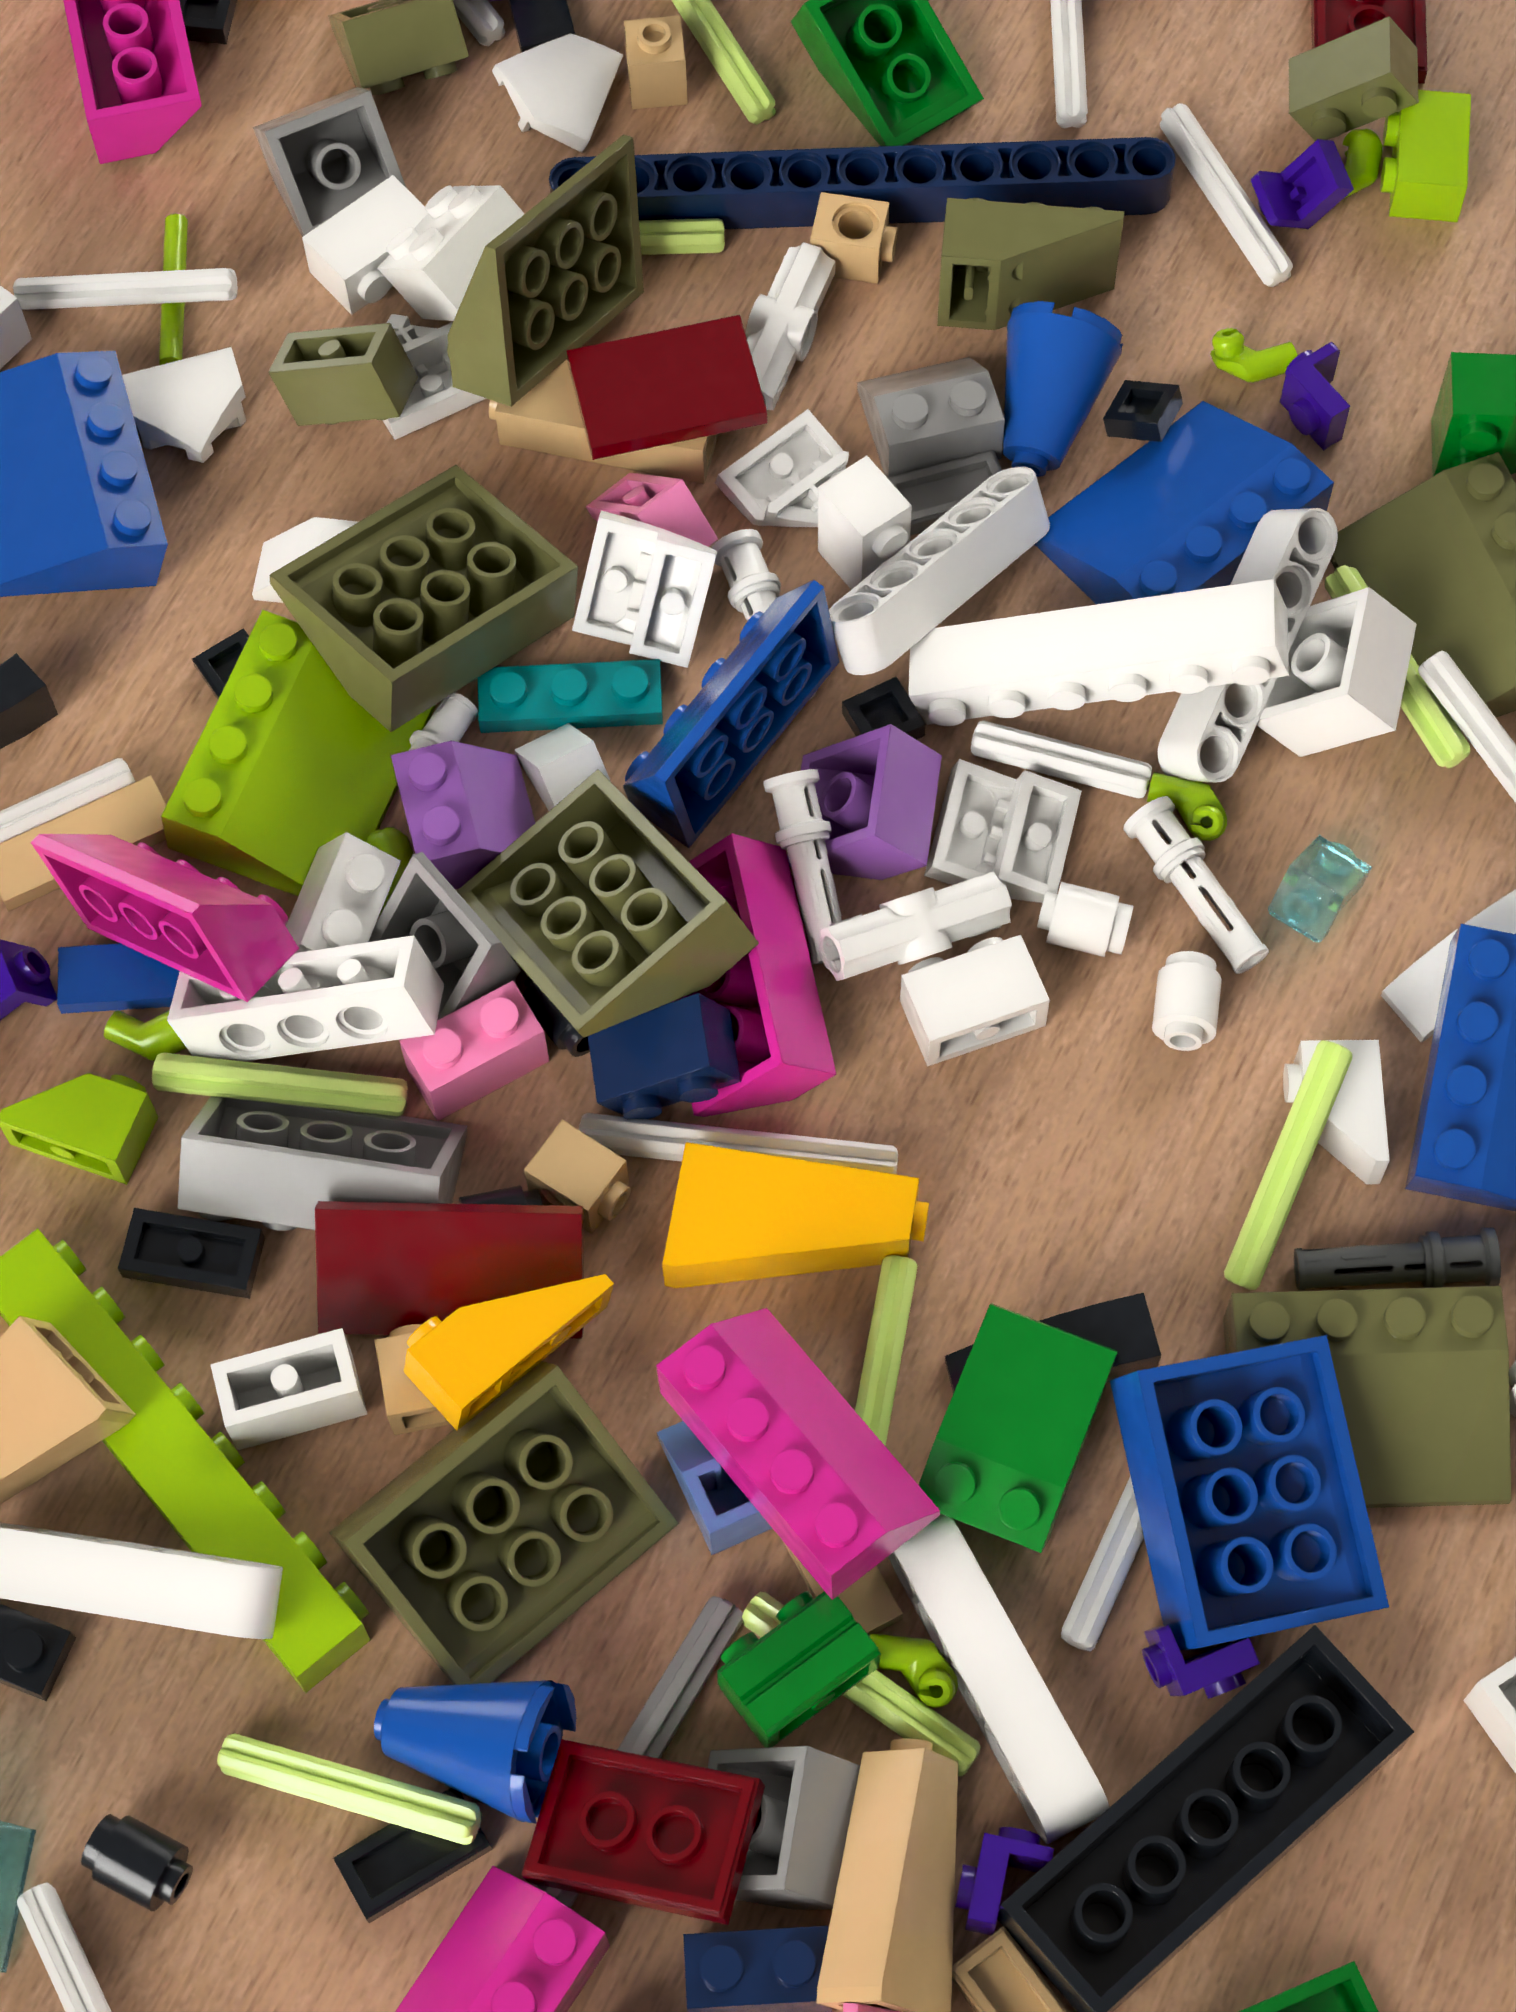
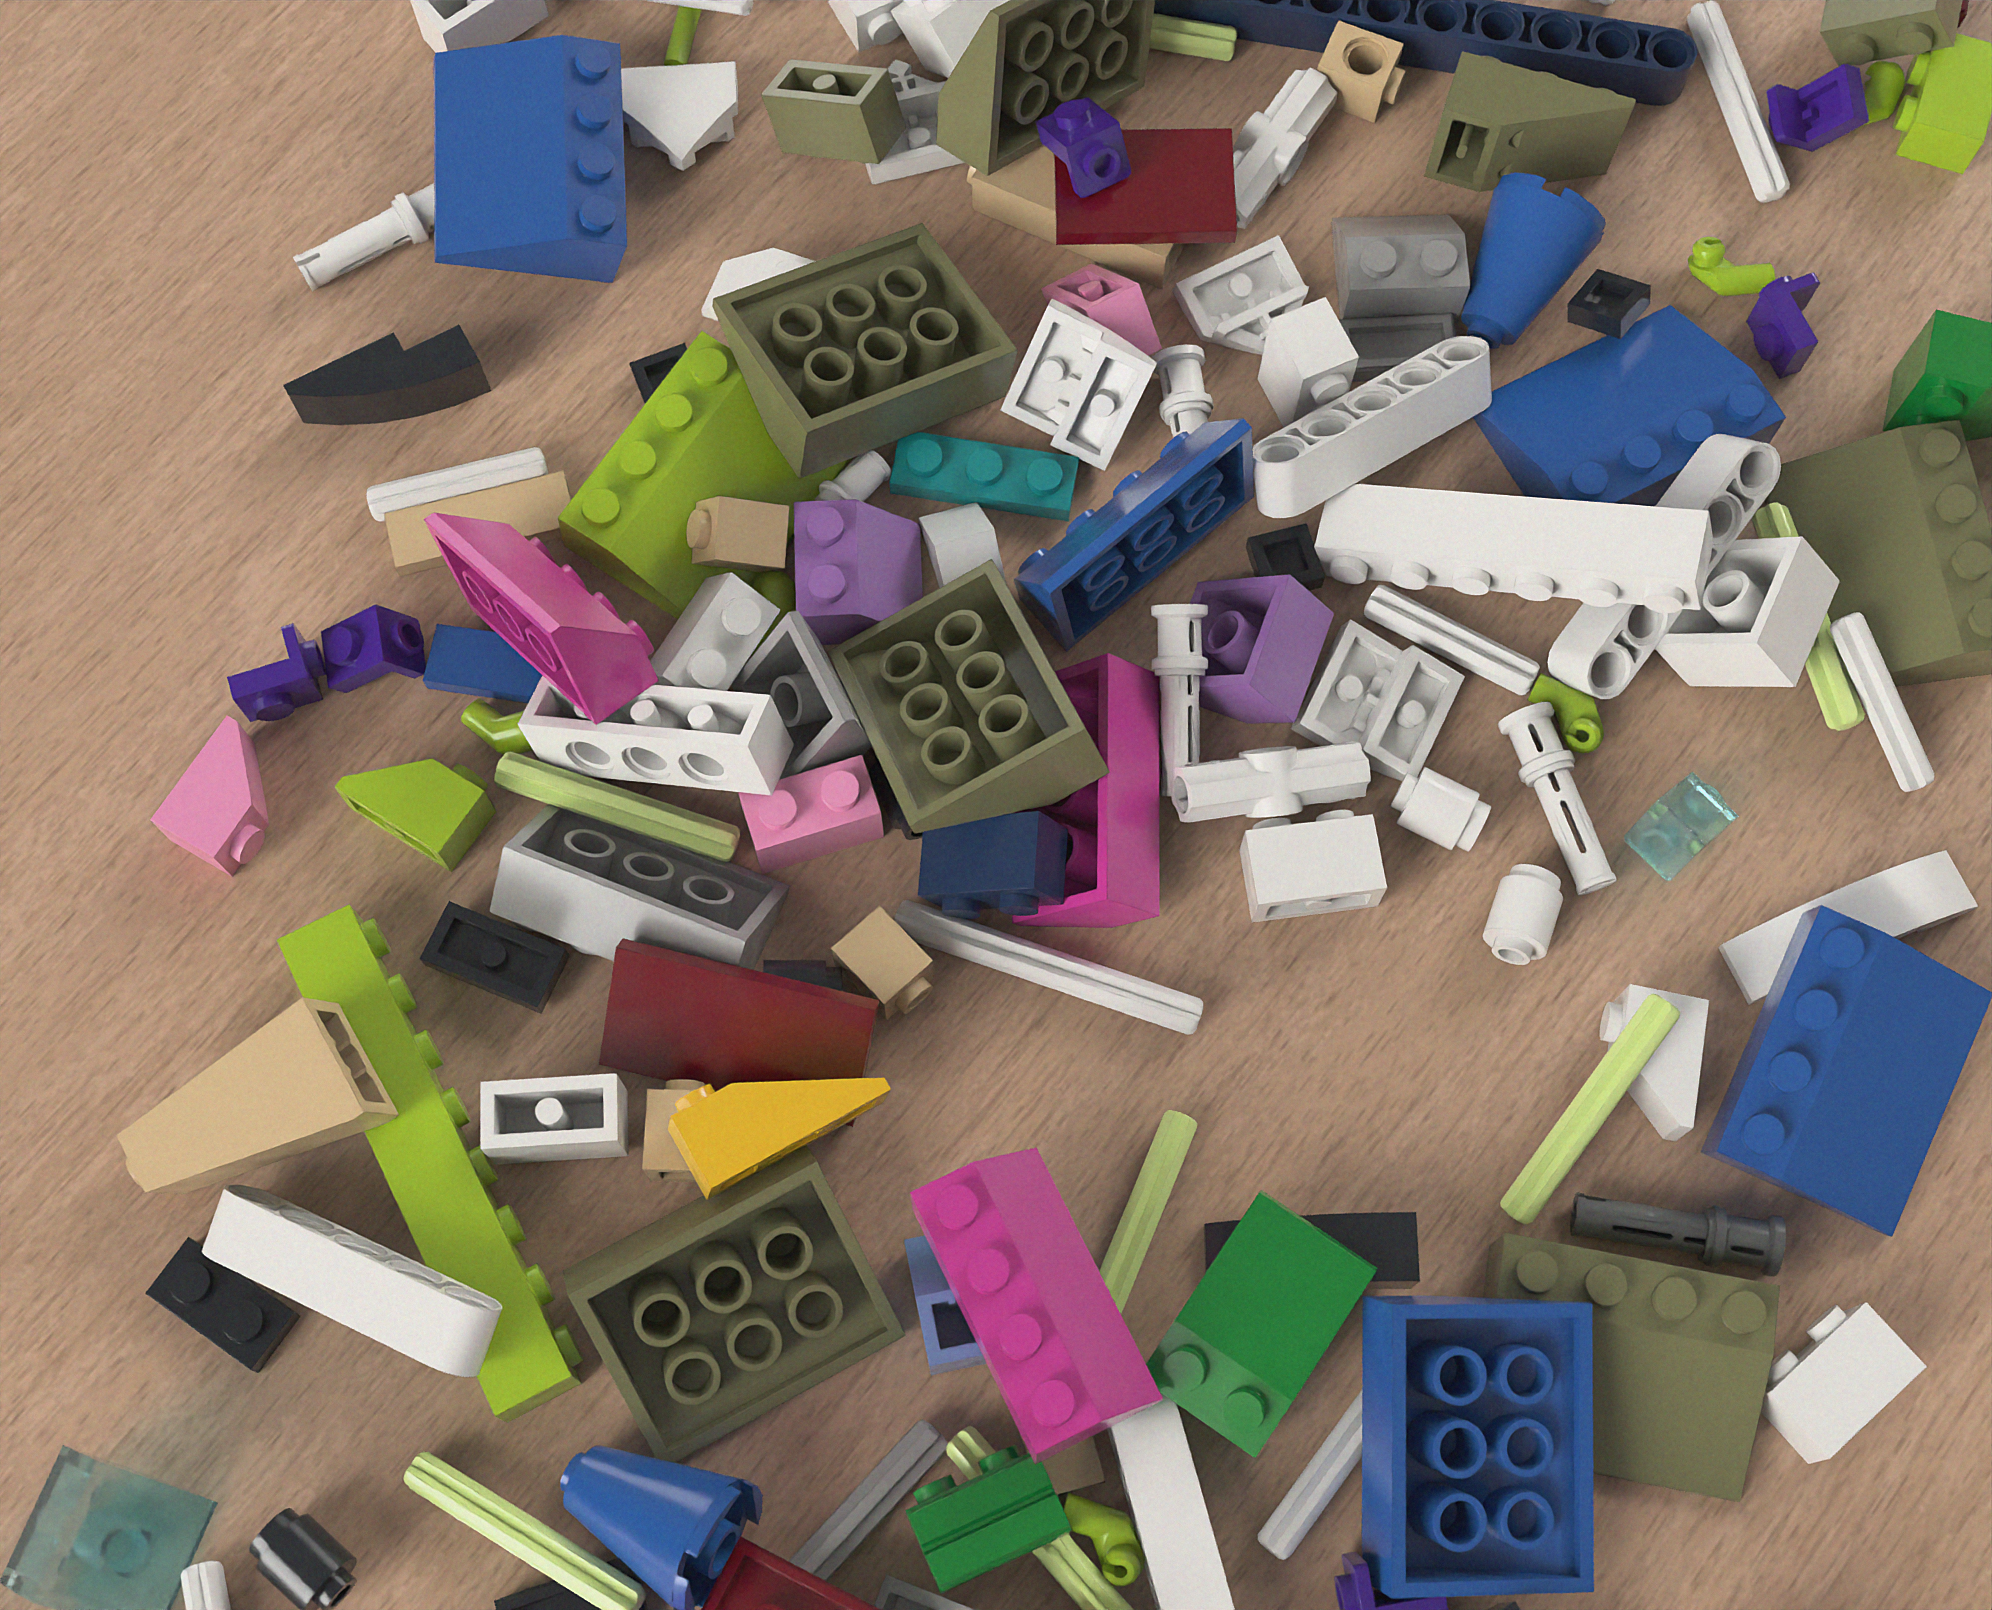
camera: 10 degrees right, 5 degrees up
(343, 797) = (738, 534): none -> tan brick
(603, 355) = (1088, 143): none -> dark purple bracket
(783, 1216) = (1074, 1048): yellow slope -> none

